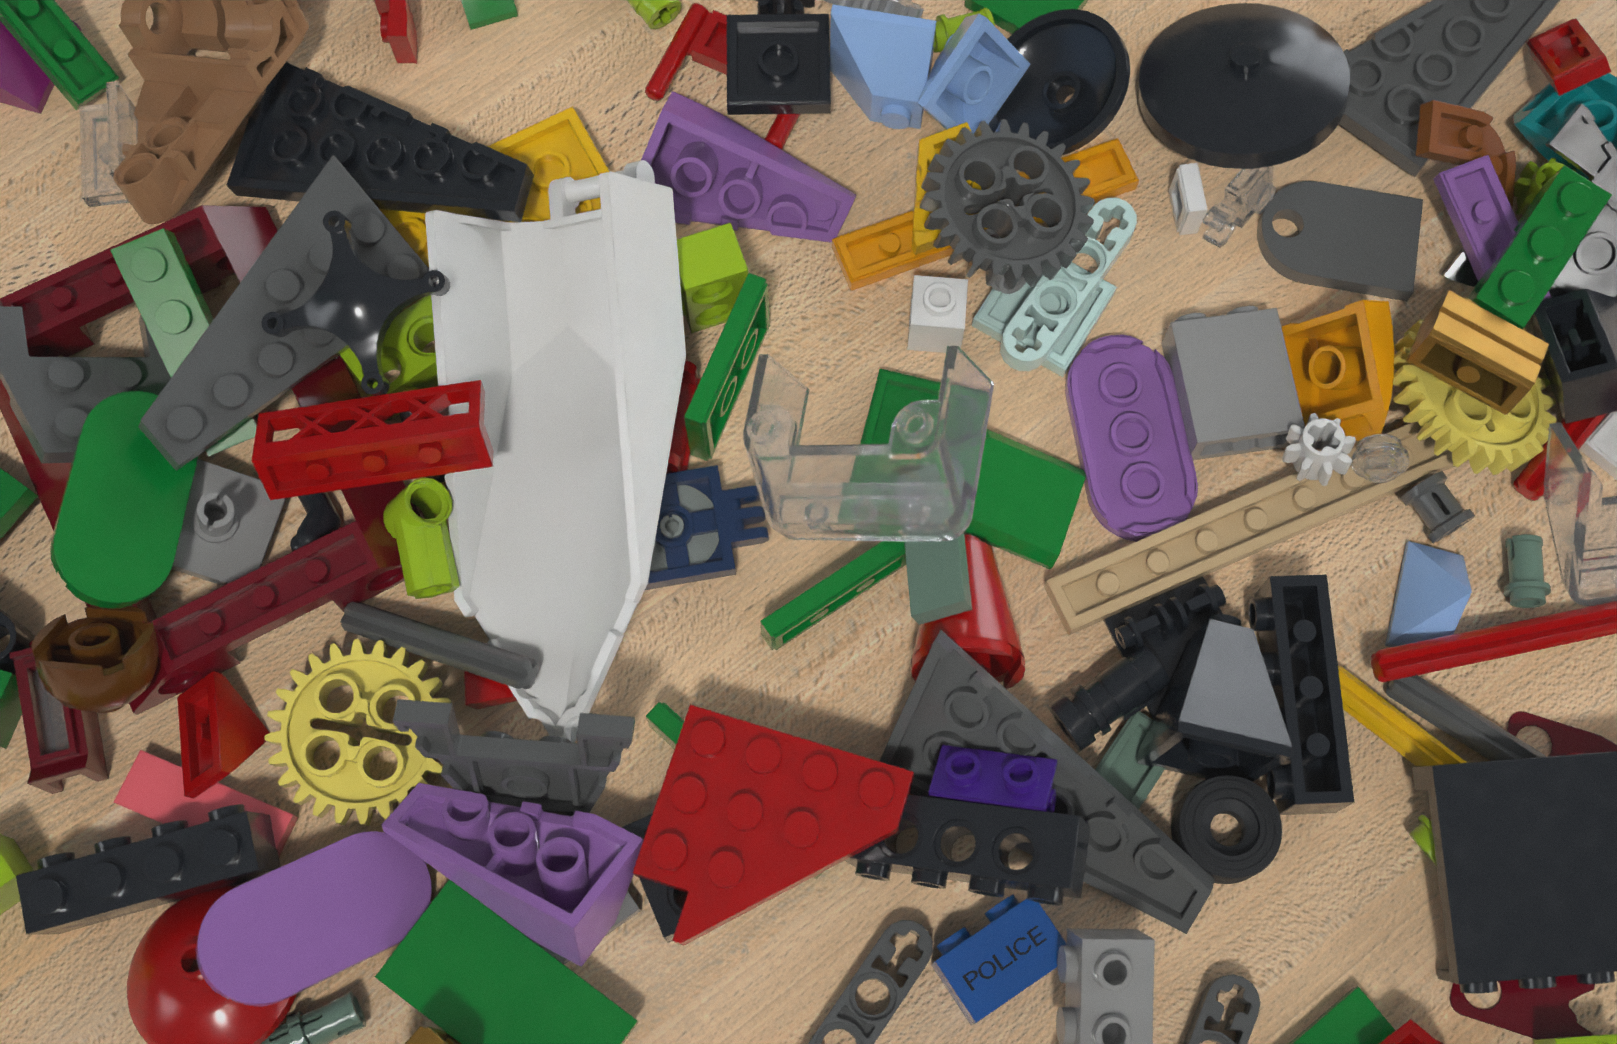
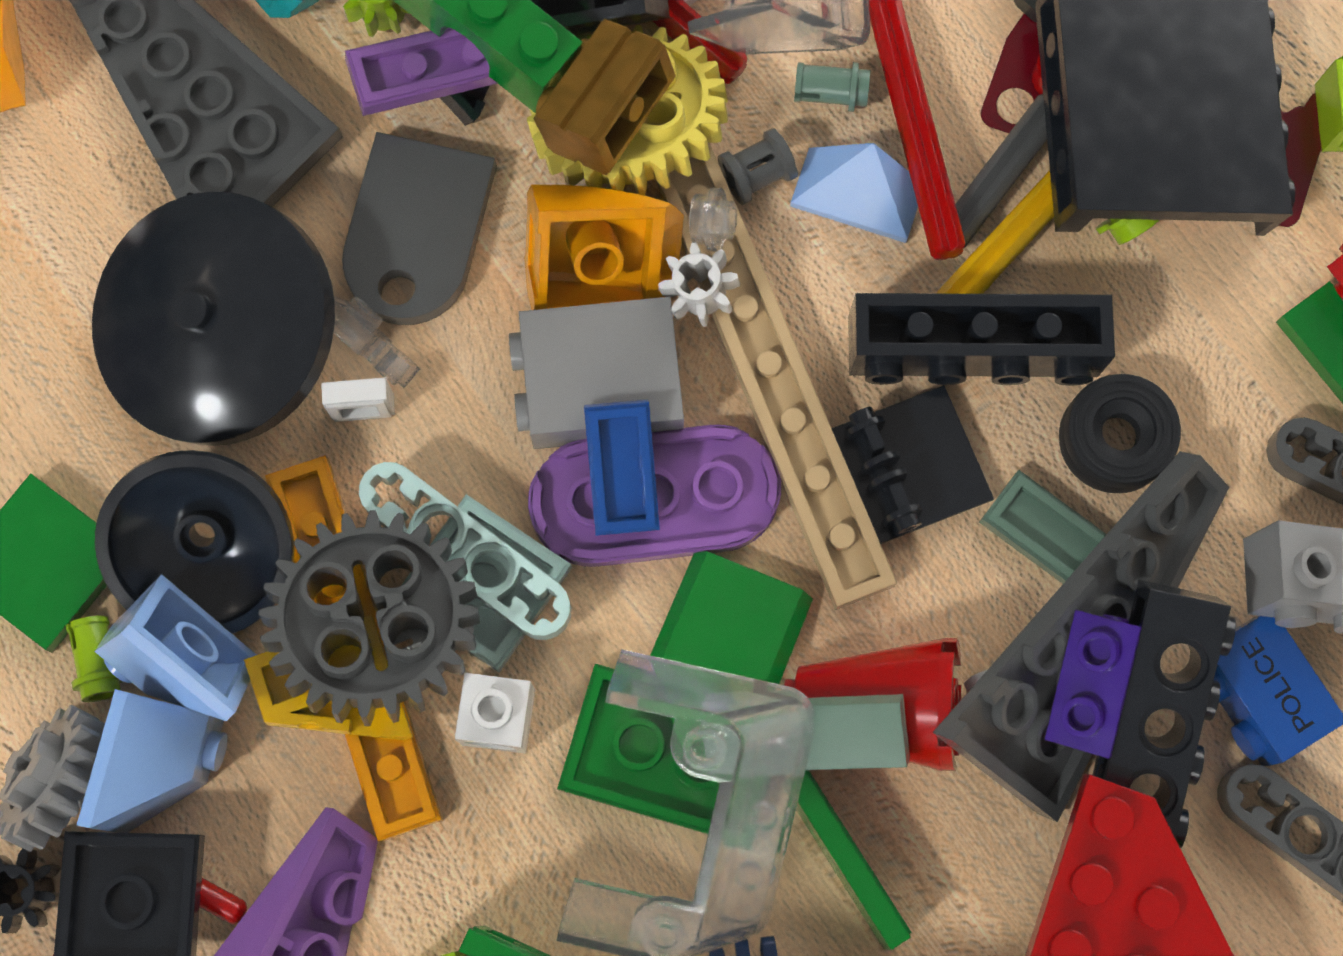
camera: 90 degrees left, 5 degrees up
(1113, 694) = (977, 548): black axle -> none
(1150, 396) = (621, 467): none -> blue tile
(1218, 709) = (994, 427): slope -> none
(1462, 135) = (314, 70): dark orange plate -> none

